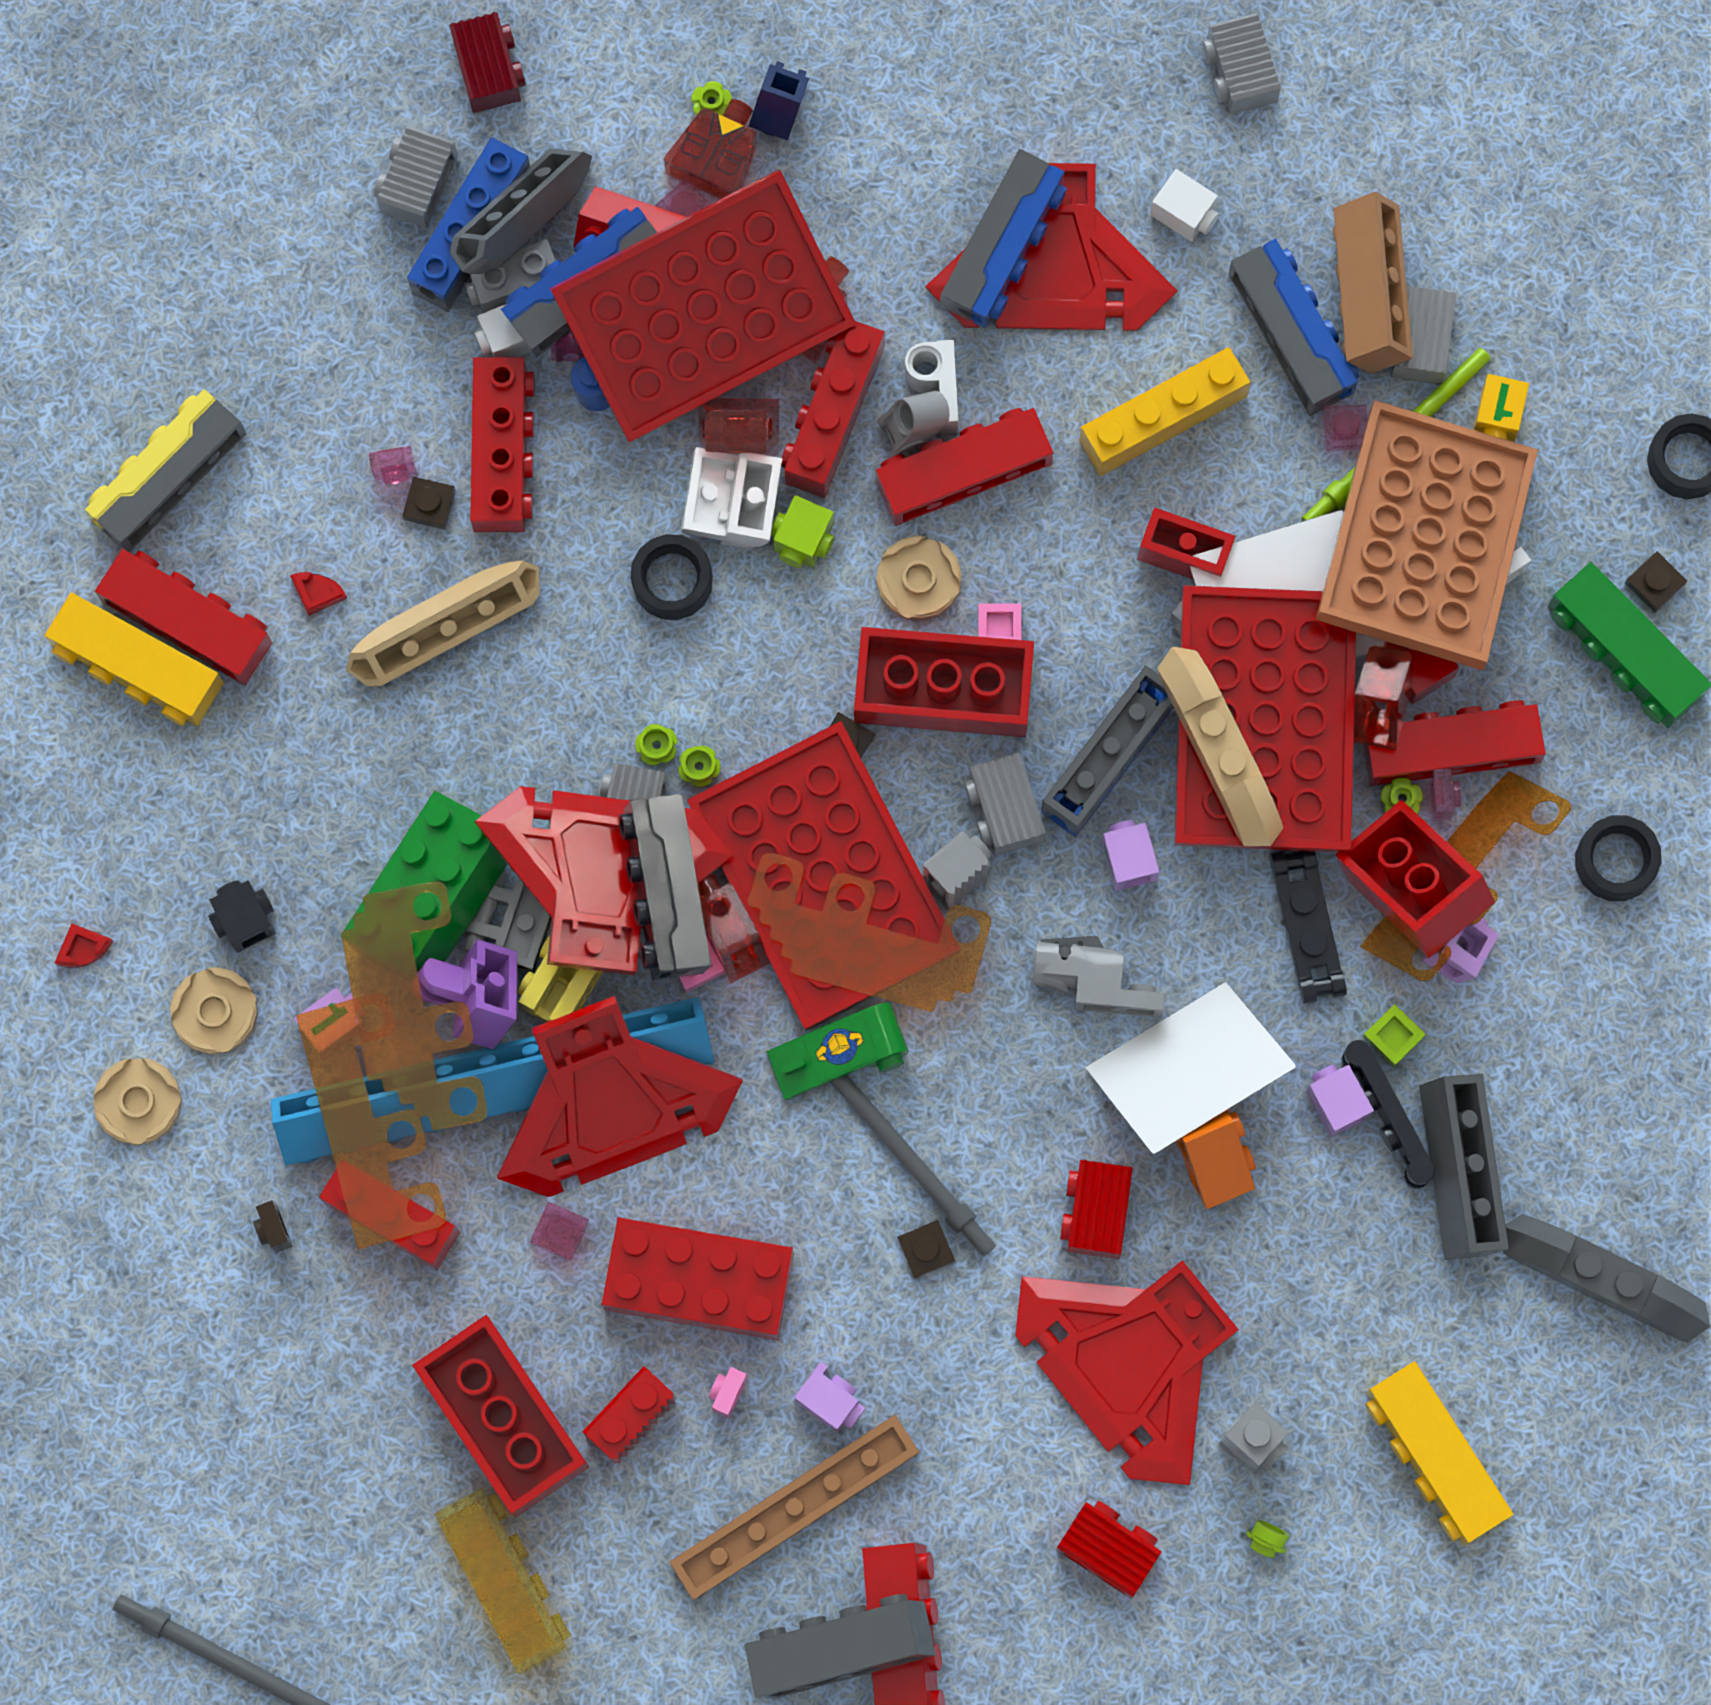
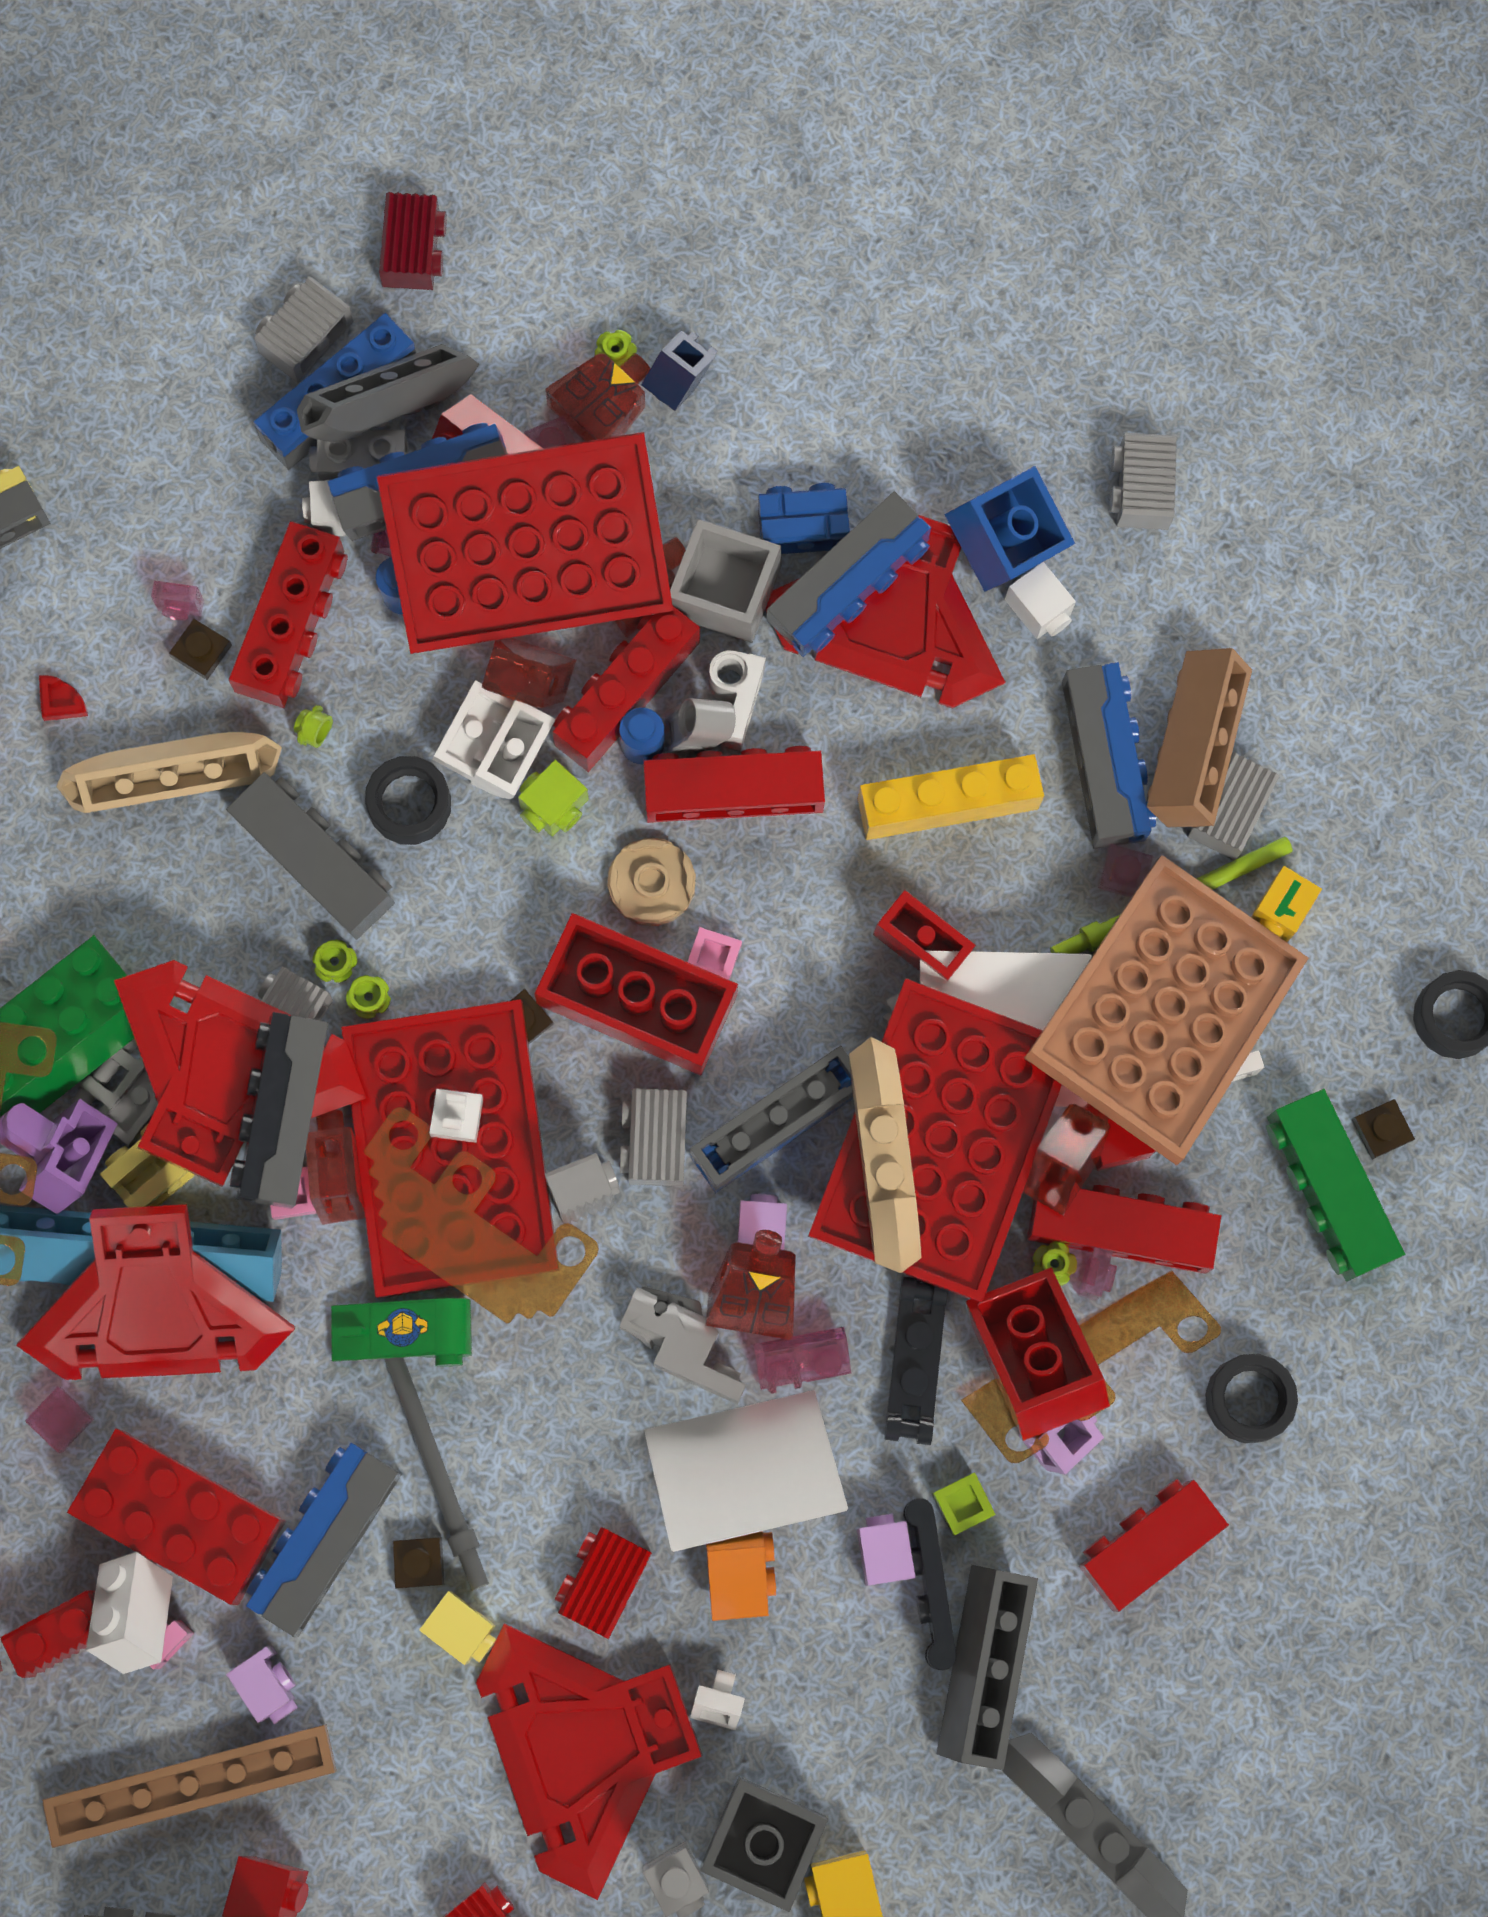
camera: 10 degrees right, 0 degrees up
(559, 539) = (312, 726): none -> lime plate
(602, 655) = (310, 855): none -> dark grey brick
(690, 1372) = (129, 1613): none -> white brick
(821, 842) = (456, 1115): none -> white tile
(835, 1254) = (322, 1540): none -> piece
(864, 448) = (641, 735): none -> blue brick
(892, 280) = (726, 580): none -> light grey piece
(941, 202) = (804, 519): none -> blue brick
(985, 1292) = (459, 1629): none -> light yellow brick
(1135, 148) = (1010, 529): none -> blue brick
(1143, 906) = (755, 1288): none -> clear red torso
(1206, 956) = (802, 1359): none -> clear pink plate
(1237, 1280) = (718, 1704): none -> white tile
(1320, 1383) = (763, 1844): none -> dark grey brick
(1572, 1013) = (1152, 1543): none -> red brick

